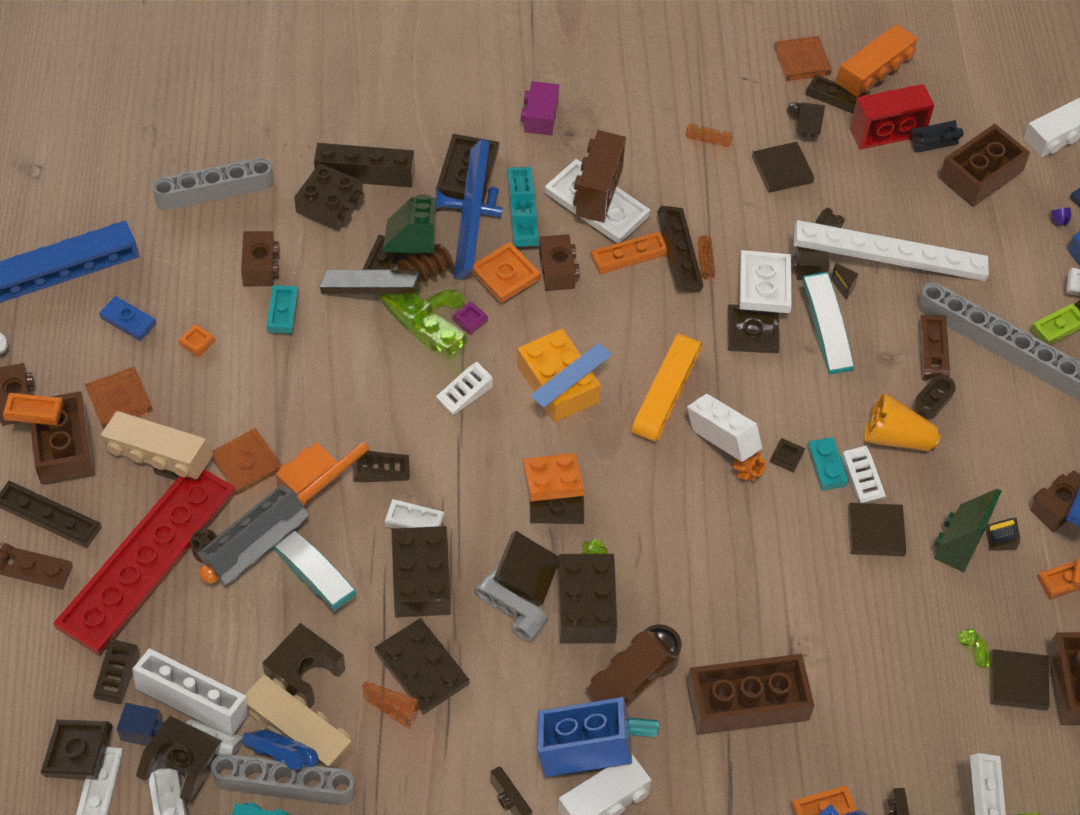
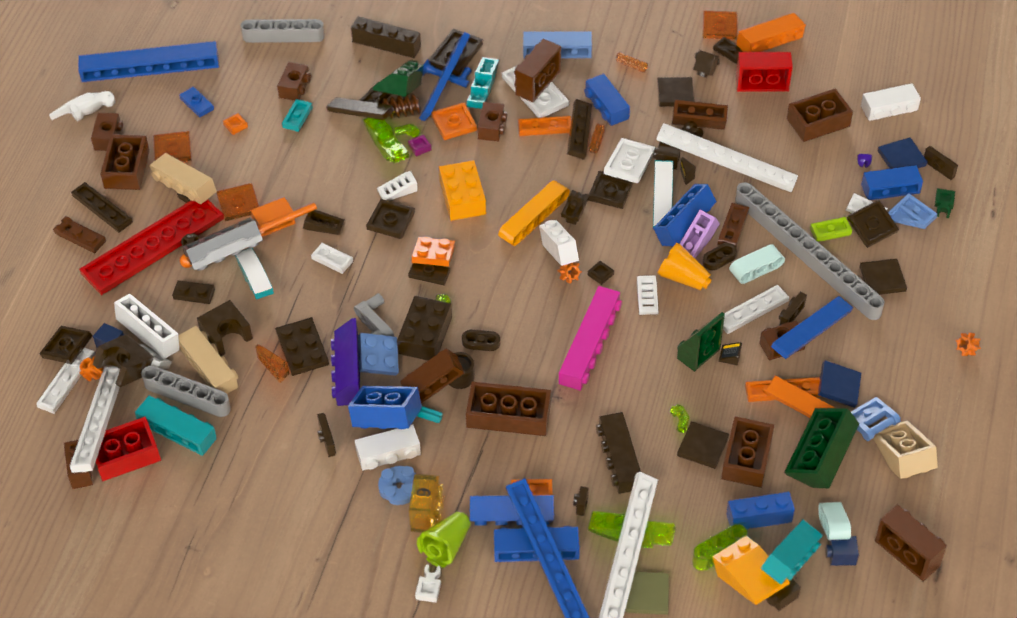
camera: 20 degrees right, 5 degrees down
(33, 409) = (111, 139): orange tile -> none
(127, 782) = (90, 371): none -> orange gear
(130, 657) = (111, 295): dark brown slope -> none
(233, 618) = (193, 292): none -> dark brown plate
(281, 748) = (189, 370): blue hinge -> none
(329, 196) = (354, 52): dark brown brick -> none
(421, 571) = (322, 289): dark brown brick -> none
(474, 440) = (390, 218): none -> dark brown plate
(501, 680) = (346, 363): none -> dark purple slope
(527, 568) = (391, 301): dark brown tile -> none
(539, 654) = (378, 354): none -> medium blue plate
(541, 108) = (521, 20): magenta brick -> none
(571, 375) = (466, 189): medium blue sticker -> none
(575, 132) = (572, 43): none -> medium blue brick
(667, 595) = (482, 340): none -> dark brown plate
(700, 197) = (607, 99): none -> blue brick
(720, 366) = (574, 207): none -> dark brown hips
(814, 559) = (589, 338): none -> dark pink brick
(827, 464) = (626, 283): teal plate -> none
(835, 194) = (703, 114): none -> reddish brown brick
(870, 347) = (679, 218): none -> blue brick
(877, 529) = (643, 331): dark brown tile -> none
(897, 369) = (699, 233): none -> lavender slope
(920, 721) = (619, 450): none -> dark brown brick
(936, 136) = (793, 91): black hinge -> none
(986, 396) = (757, 264): none -> light aqua beam
(1005, 460) = (754, 308): none -> white tile
(1060, 445) = (794, 308): none -> dark brown plate

